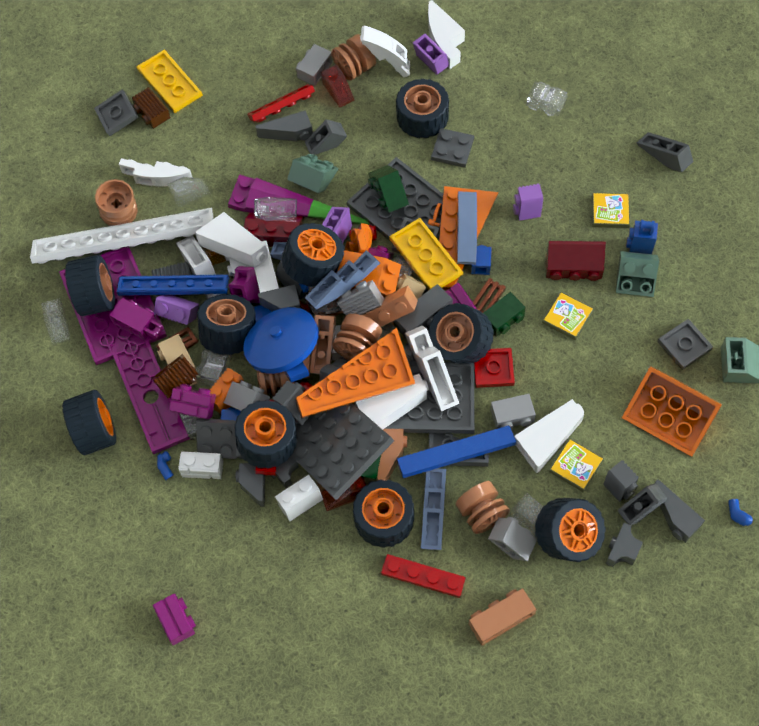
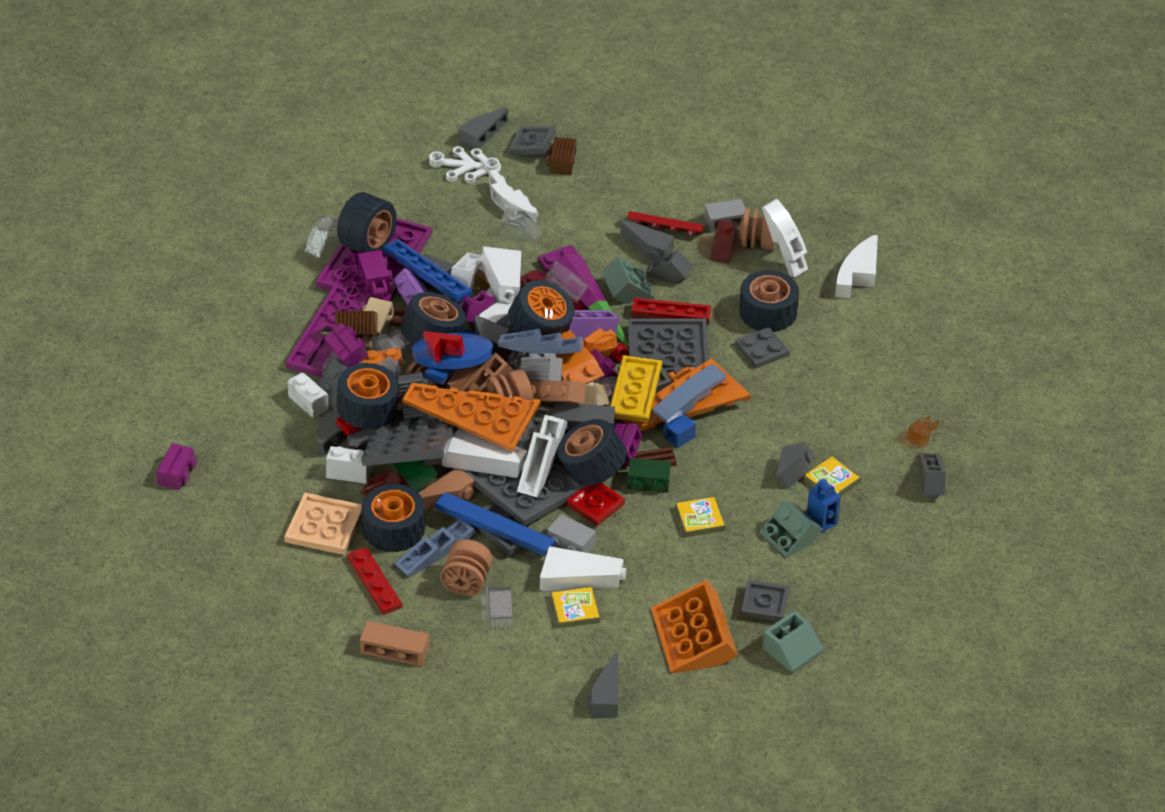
camera: 40 degrees right, 20 degrees down
(67, 133) = (482, 128): none -> dark grey slope
(89, 170) = (467, 164): none -> white plant
(89, 422) = (263, 306): black wheel -> none
(116, 202) = (455, 194): nougat wheel -> none
(119, 236) = (429, 216): white plate -> none
(162, 465) = (283, 376): blue arm -> none
(169, 81) = (601, 150): yellow tile -> none
(281, 348) = (441, 343): none -> red slope
(336, 563) = (324, 523): none -> light nougat plate
(359, 173) = (669, 310): none -> red plate
(390, 188) = (664, 327): dark green brick -> none
(431, 54) = (826, 271): medium lavender brick -> none
(512, 538) = (462, 601): light grey brick -> none
(528, 202) = (765, 418): medium lavender brick -> none
(546, 98) = (882, 369): clear brick -> none
(570, 529) = (513, 608): black wheel -> none
(575, 260) = (750, 481): dark red slope -> none
(582, 219) = (794, 463): none -> dark grey slope
(621, 481) = (589, 633): dark grey brick -> none
(622, 125) = (920, 431): none -> clear orange piece
(624, 547) = (537, 676): dark grey brick -> none
(642, 504) = (584, 657): dark grey brick -> none
(738, 515) = (654, 728): blue arm -> none

